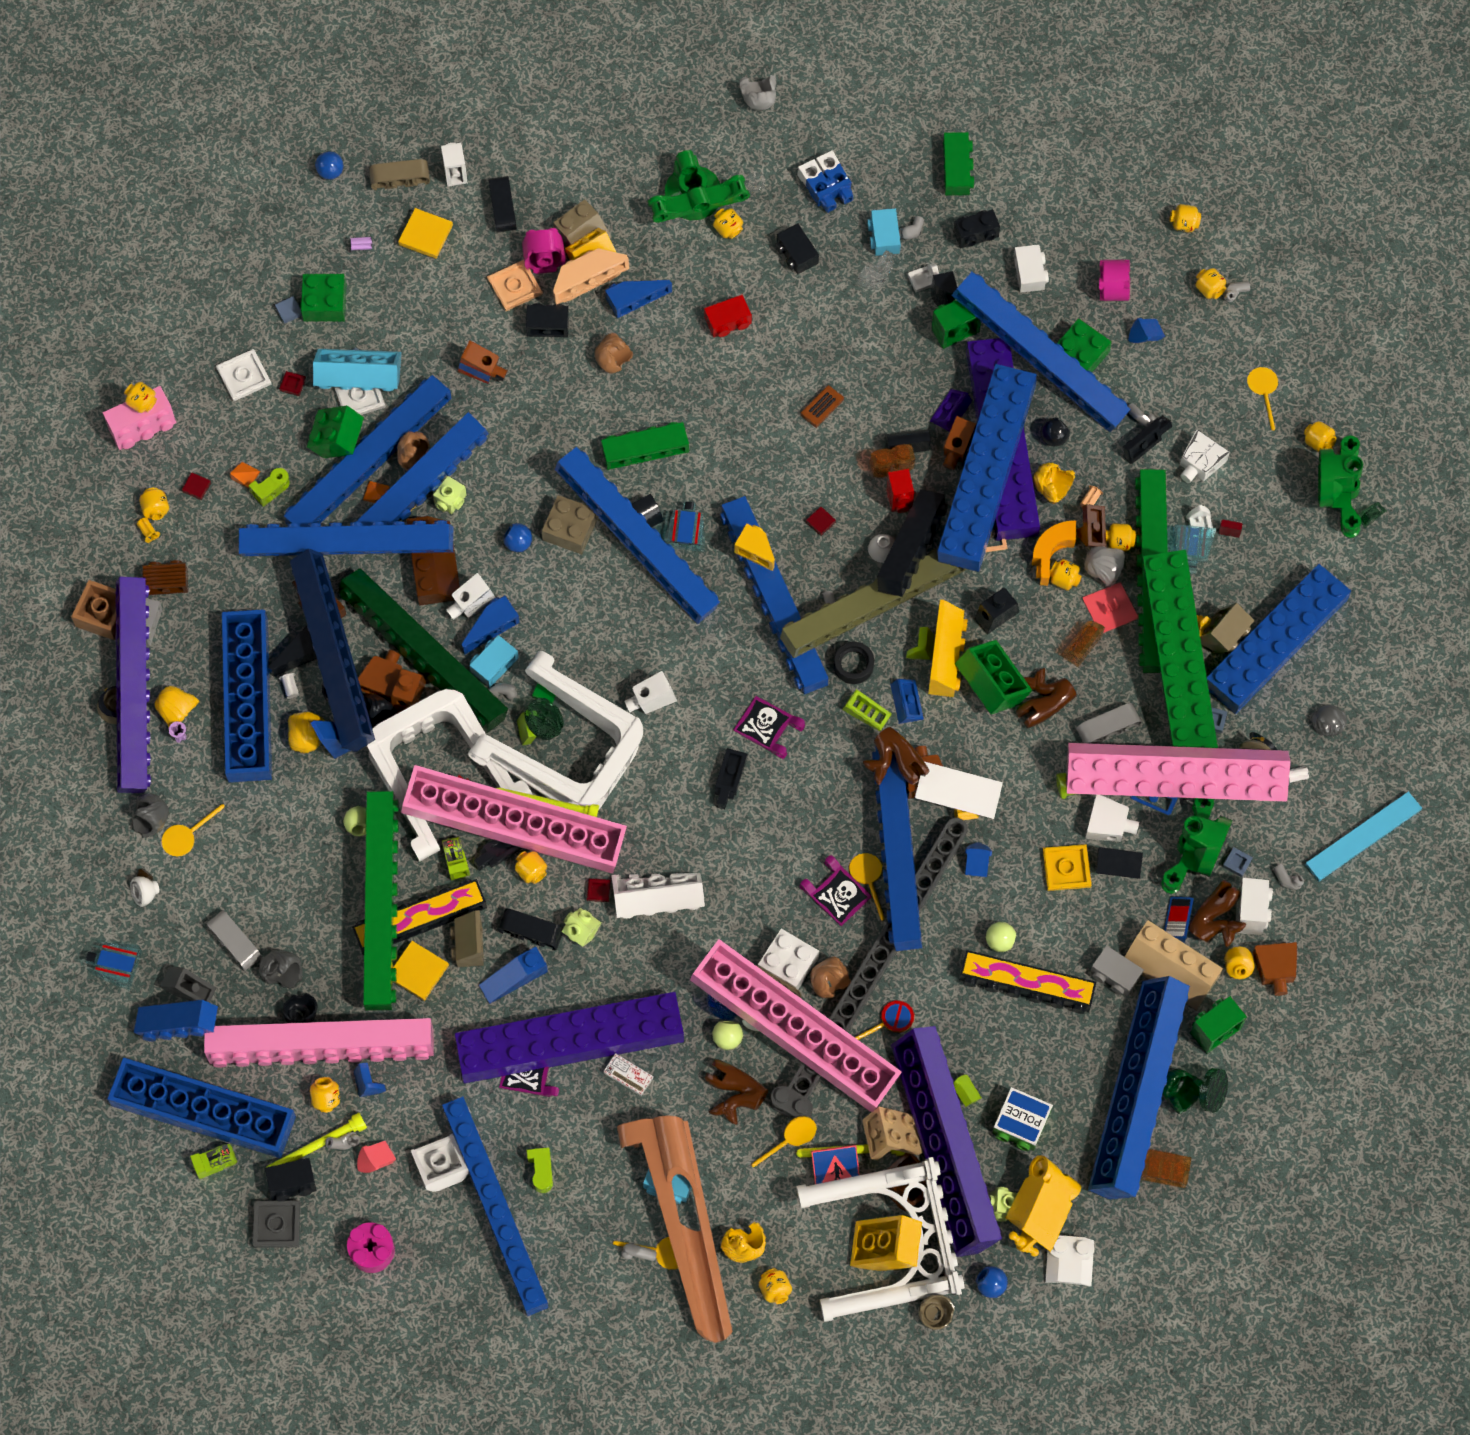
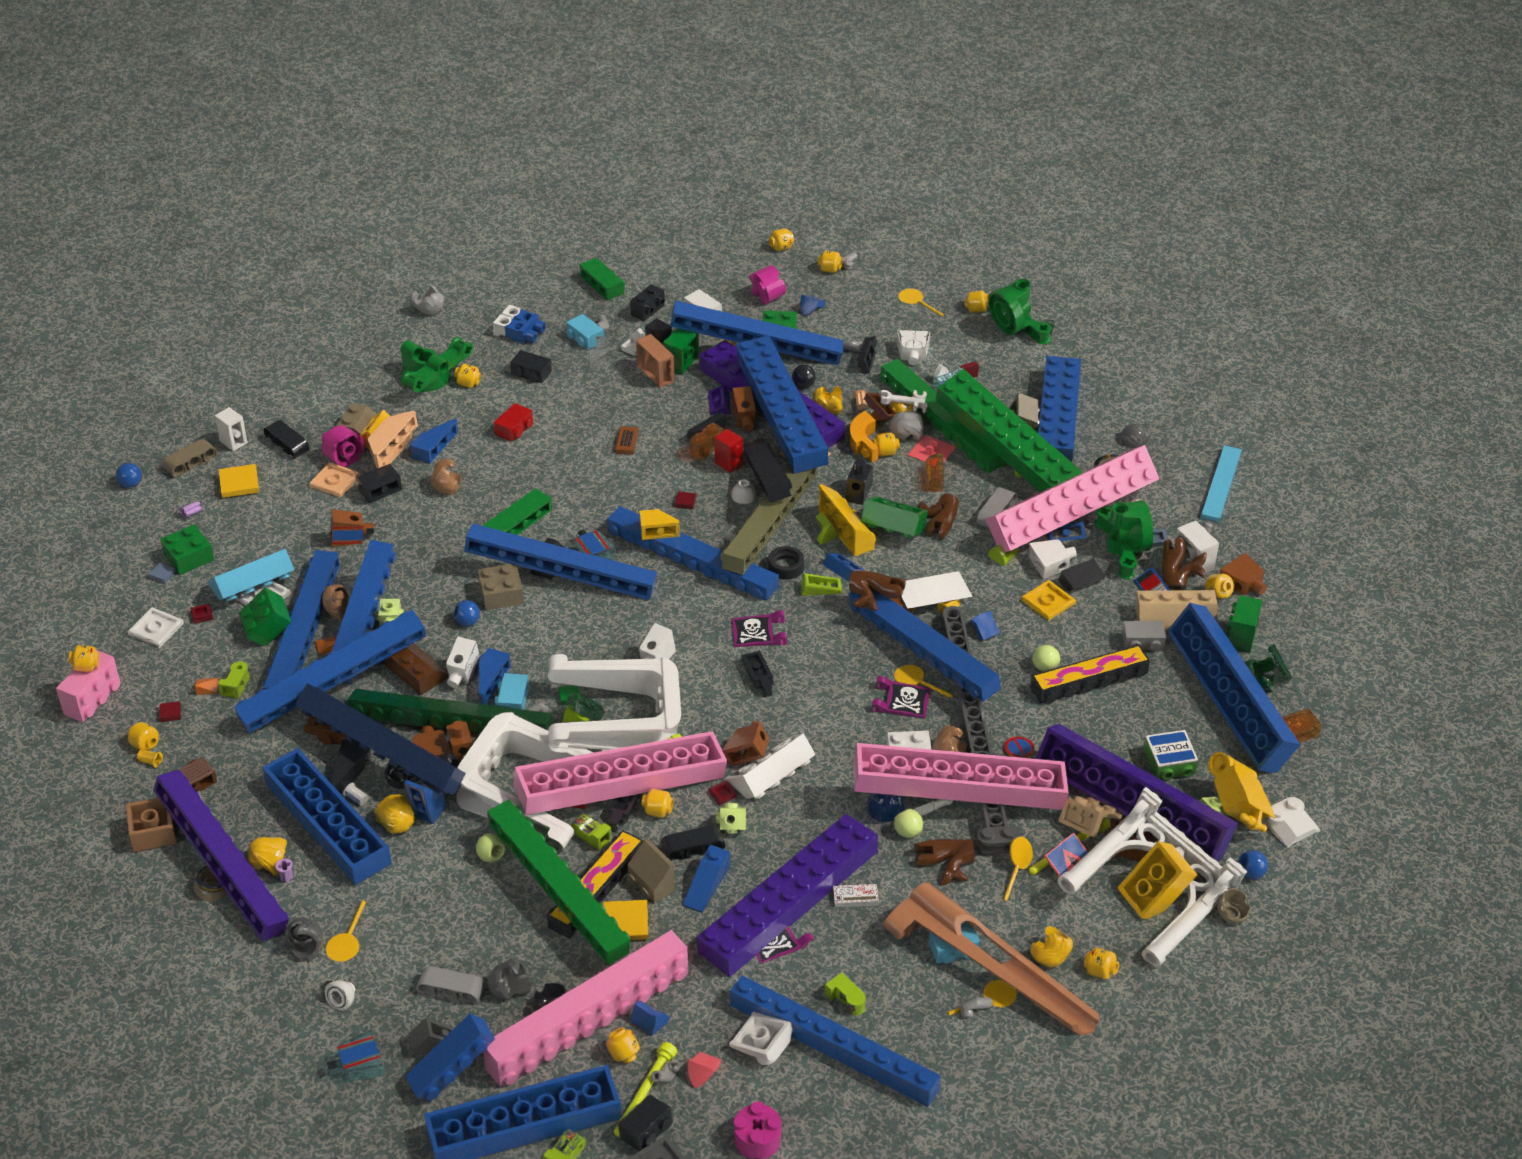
camera: 35 degrees left, 25 degrees down
(653, 855) = (746, 744): none -> dark orange torso
(919, 321) = (662, 369): none -> nougat window
(1134, 543) = (917, 400): none -> white bar

